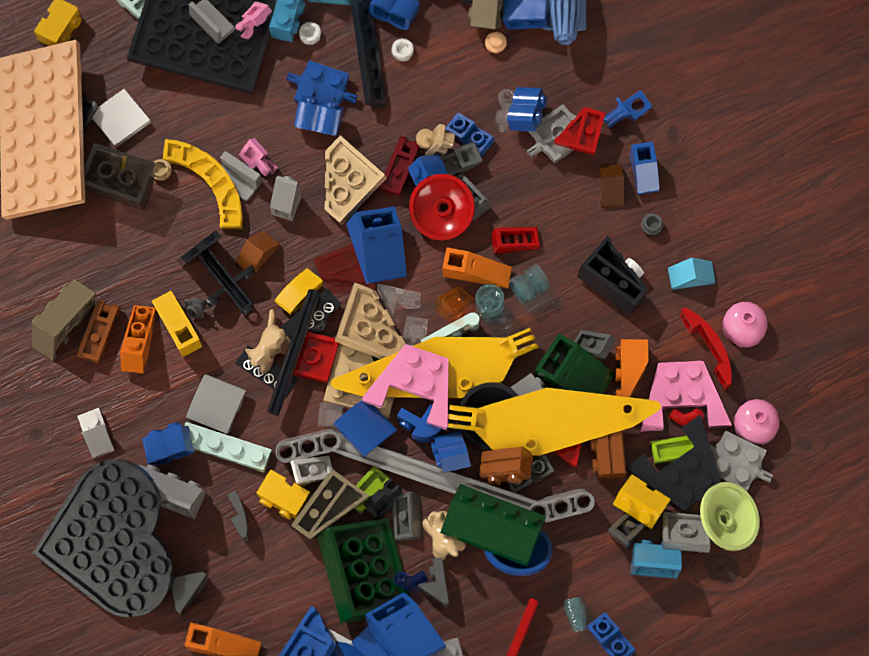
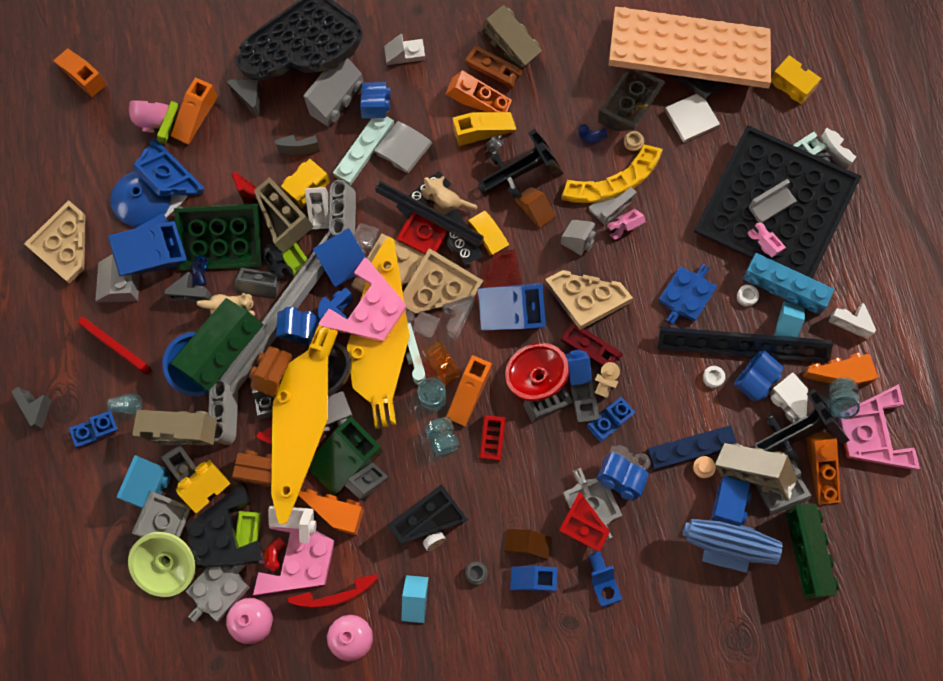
camera: 105 degrees right, 0 degrees up
(162, 213) = (591, 136): none -> clear blue arm
(308, 555) = (245, 188): none -> red slope
(319, 116) = (655, 282): blue brick -> none
(478, 57) = (690, 447): none -> dark blue plate
(590, 540) = (175, 427): none -> dark tan wedge
(647, 390) = (299, 519): none -> white bracket

